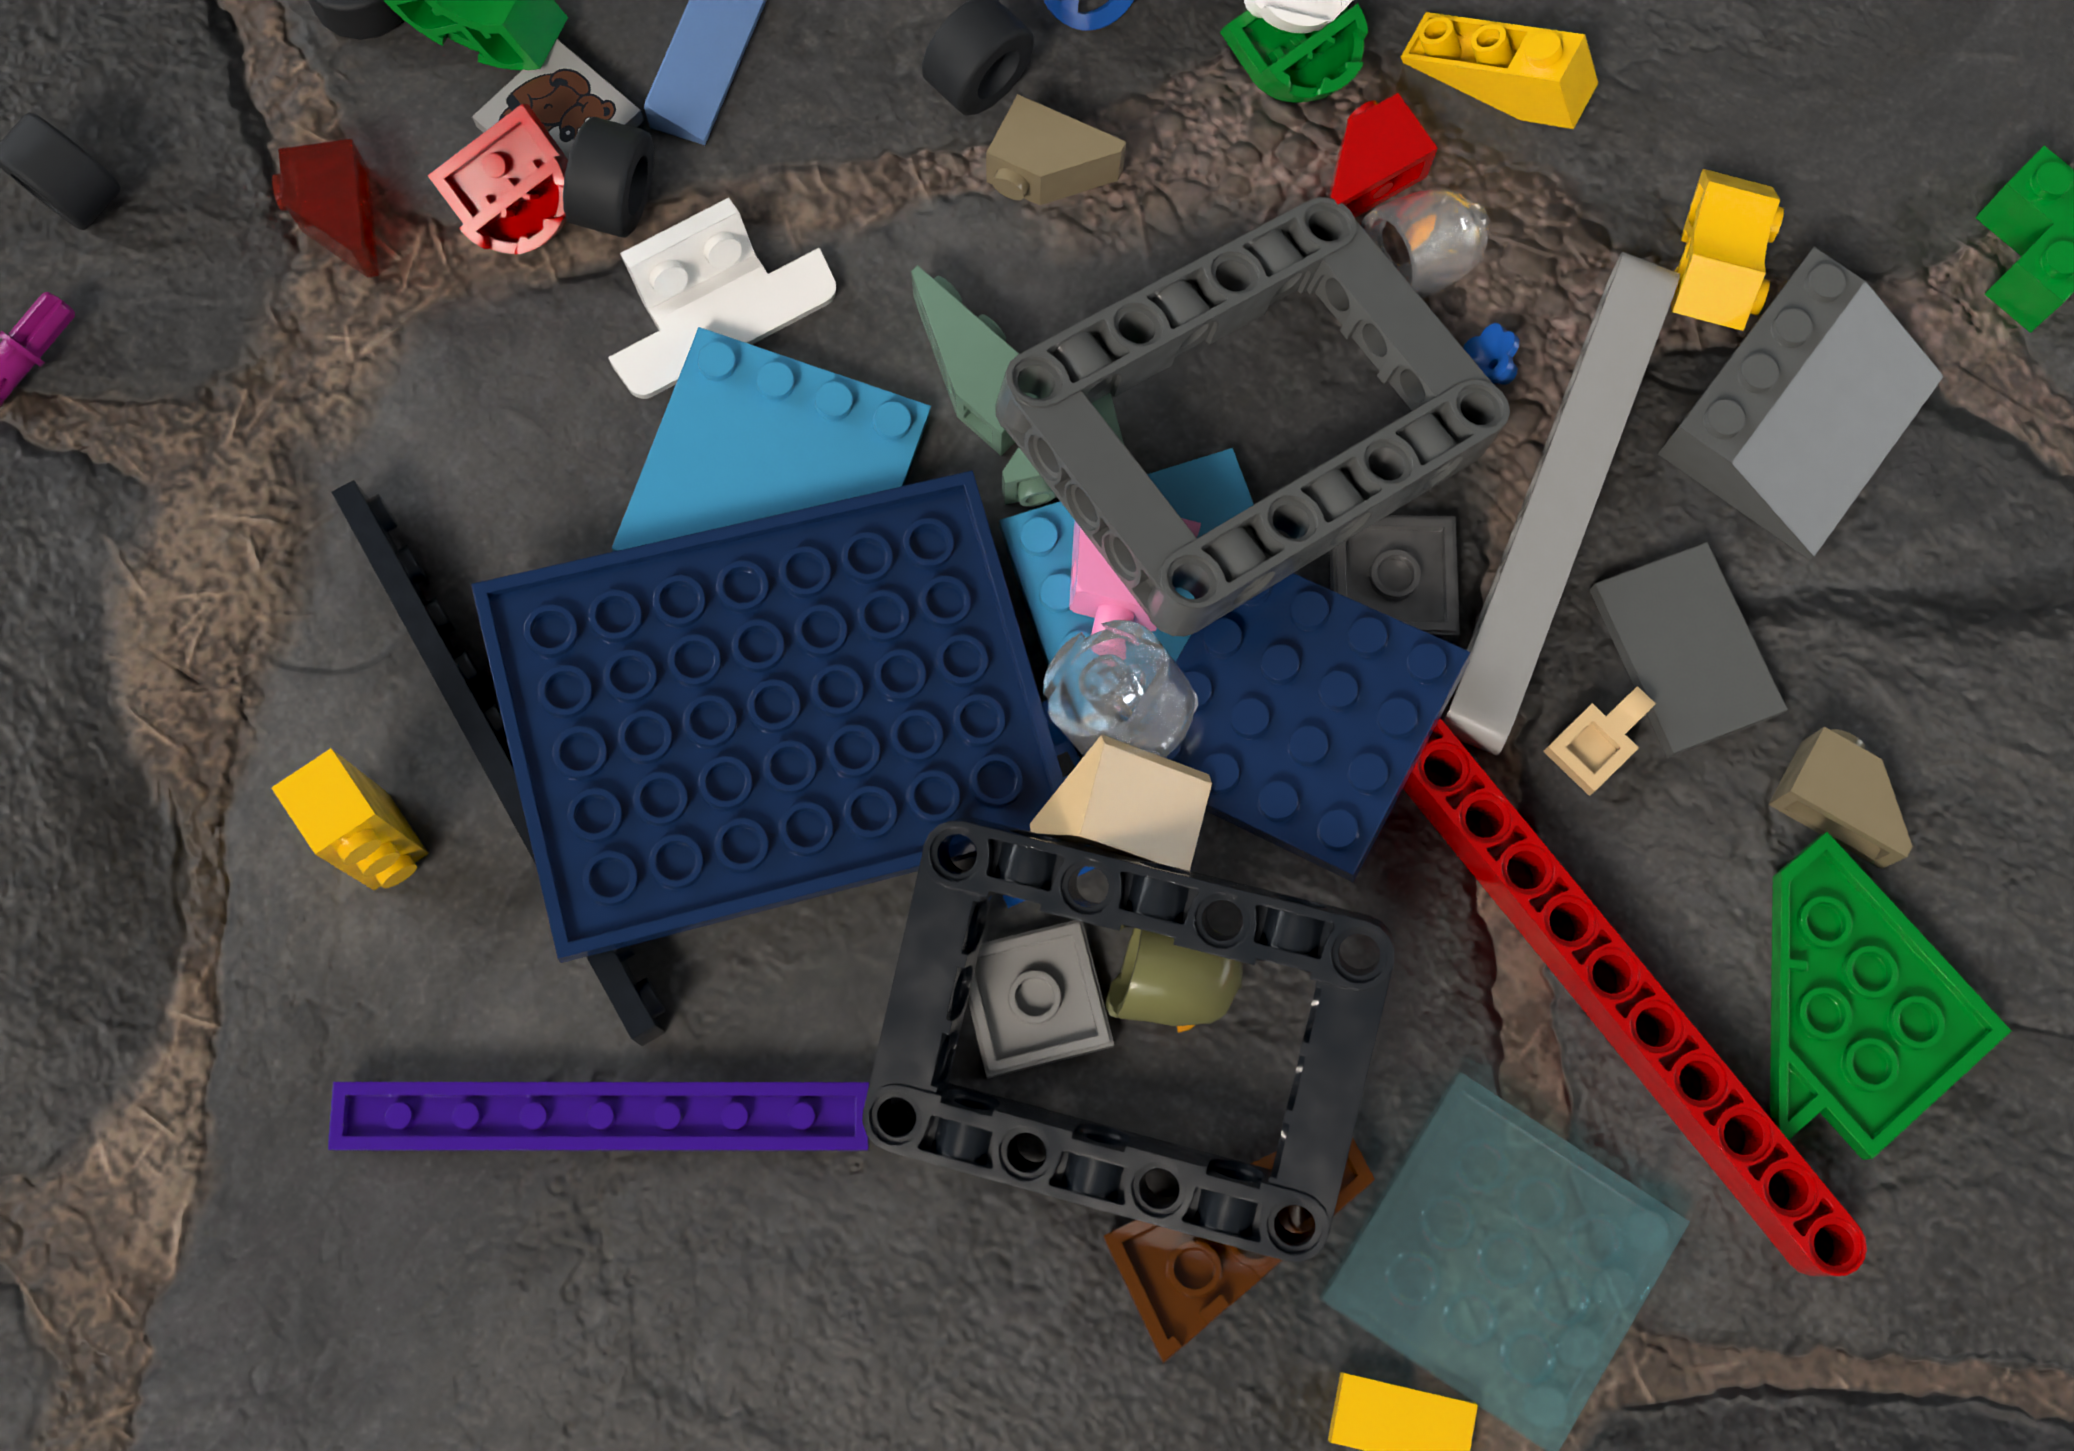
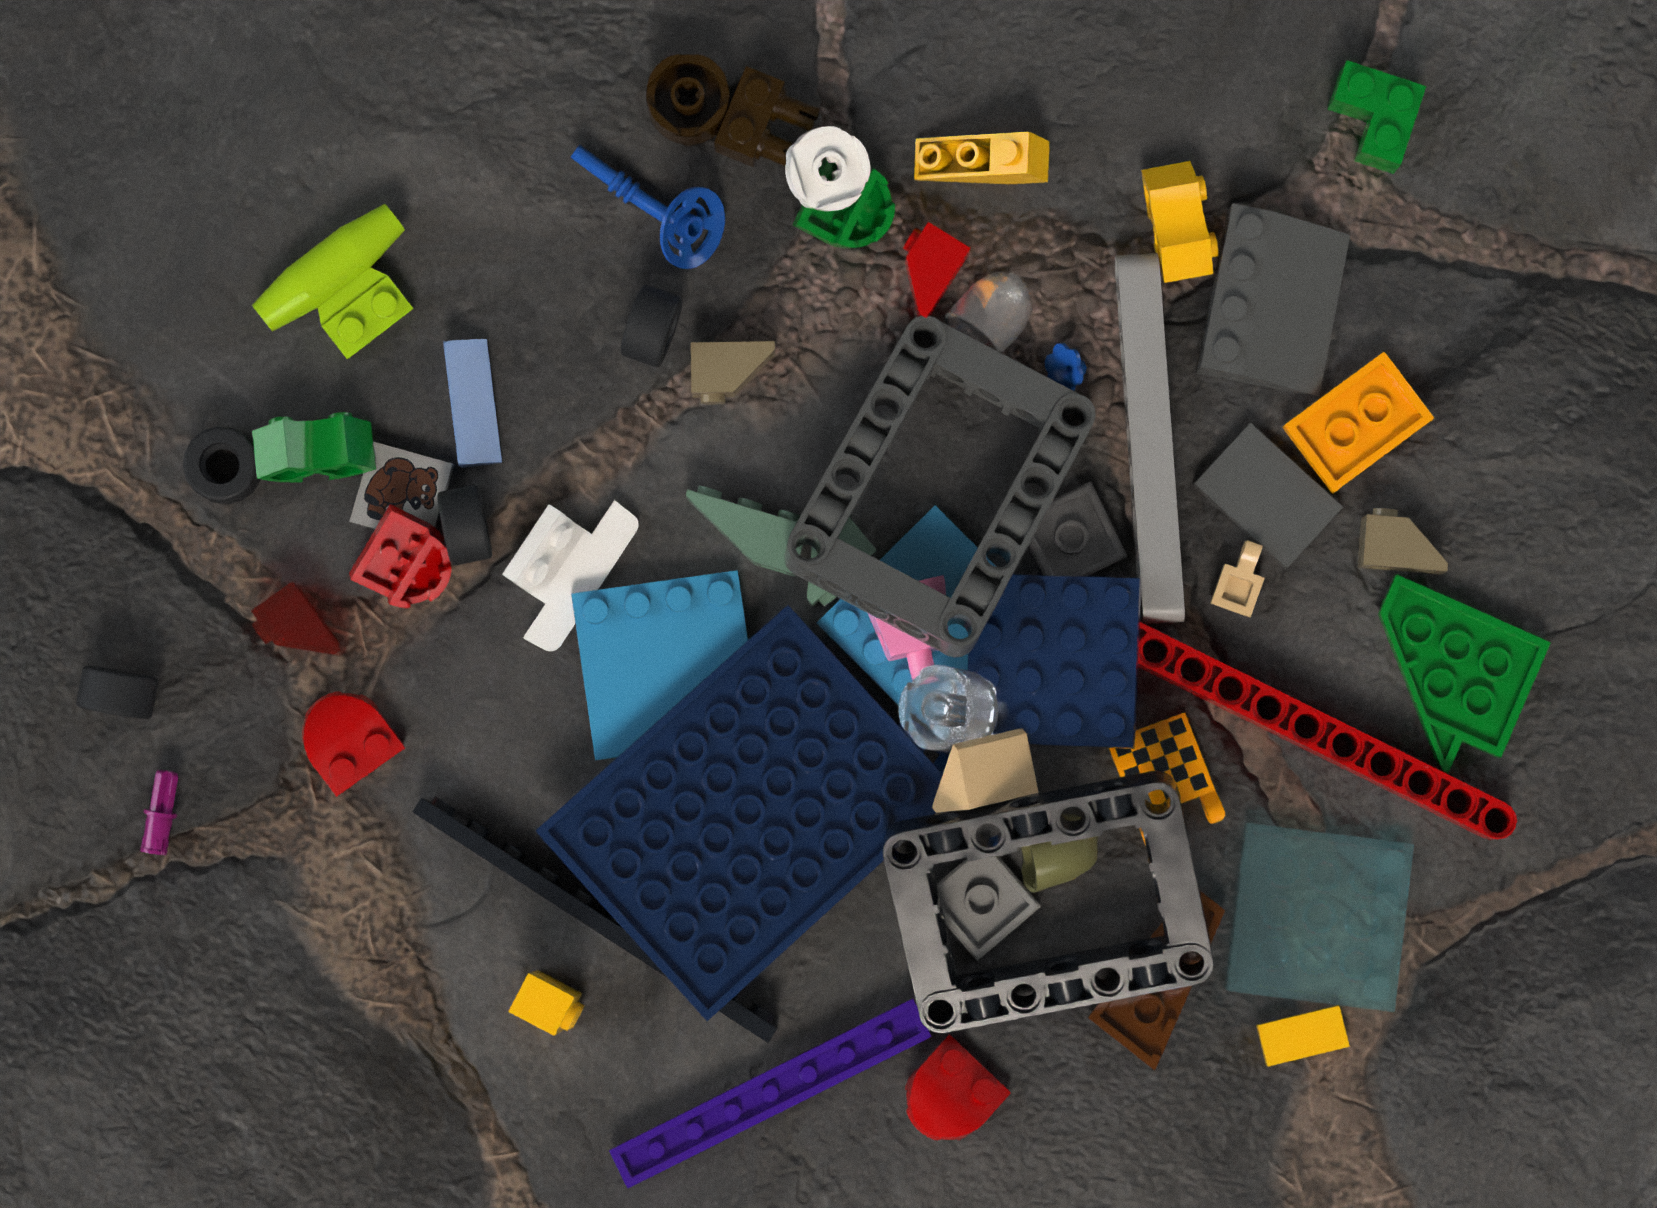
camera: 25 degrees left, 10 degrees up
(310, 373) = (347, 739): none -> red slope
(855, 1248) = (952, 1093): none -> red slope
(1413, 915) = (1171, 749): none -> light orange flag
(1856, 611) = (1358, 422): none -> light orange plate

